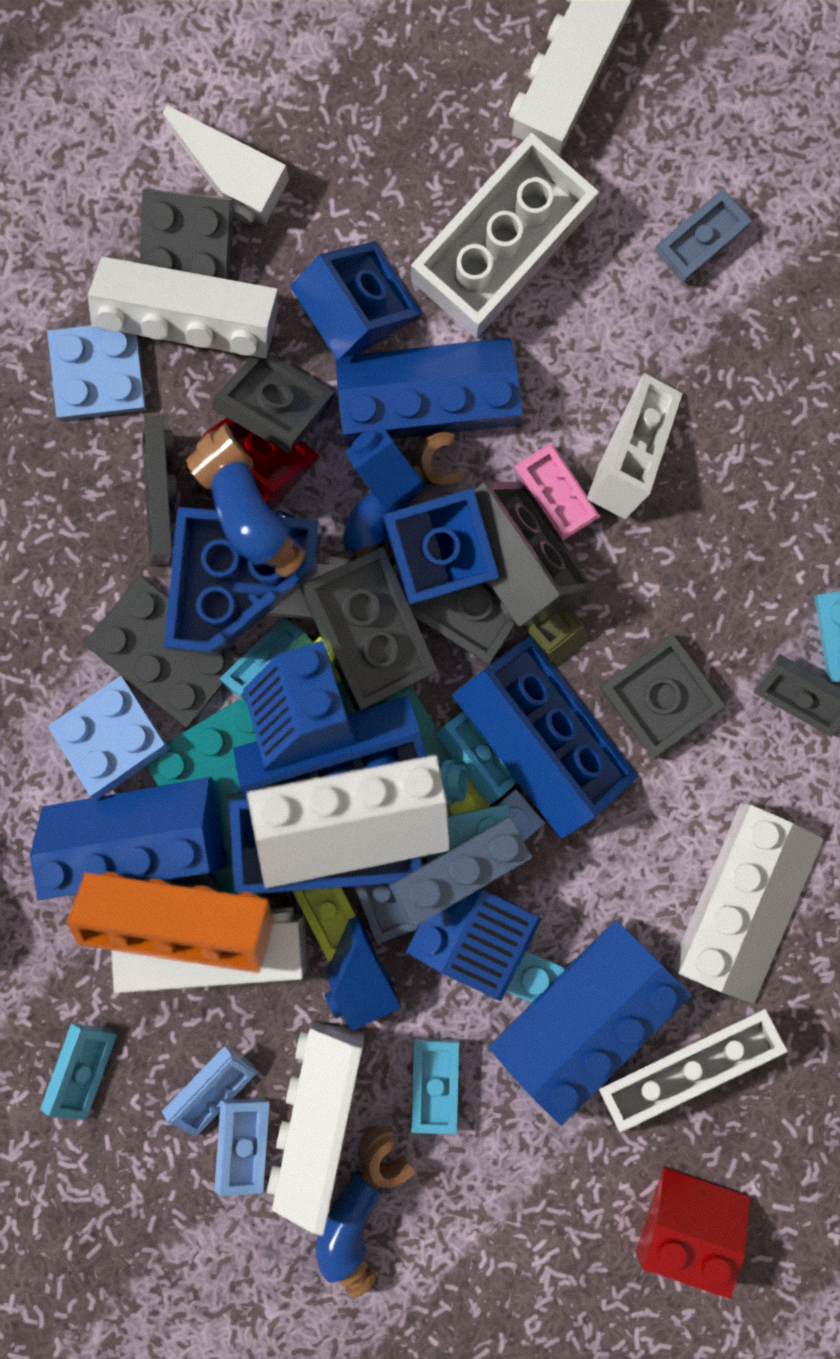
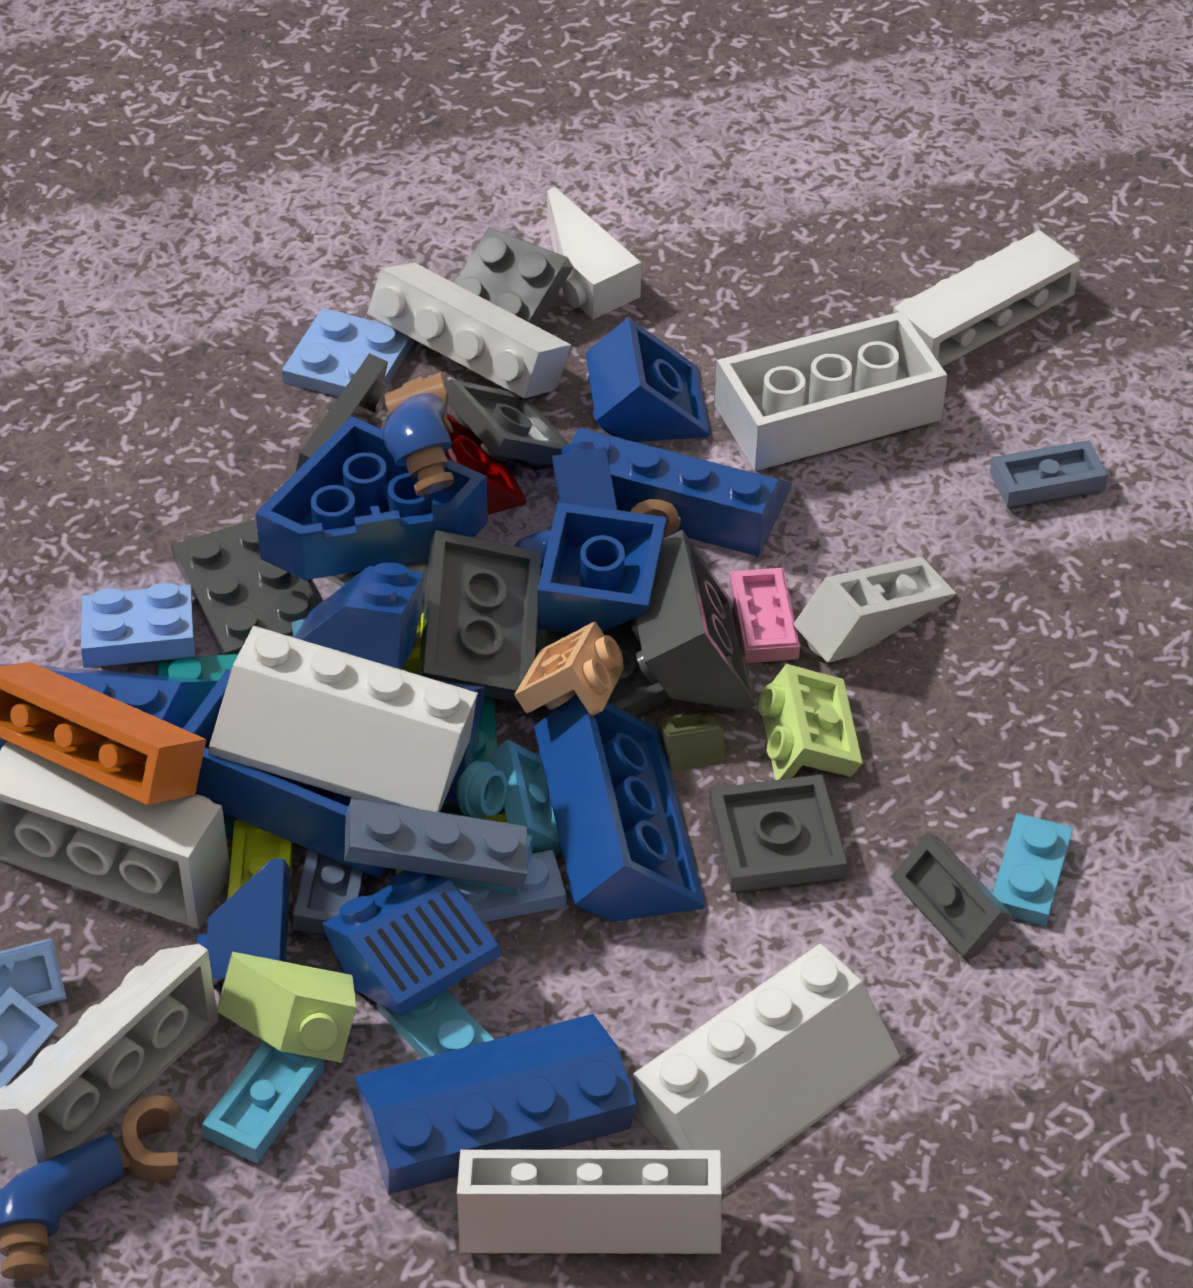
camera: 25 degrees right, 40 degrees down
(425, 1024) = (290, 1005): none -> yellowish green slope
(464, 653) = (577, 664): none -> light nougat bracket
(638, 585) = (808, 723): none -> yellowish green bracket

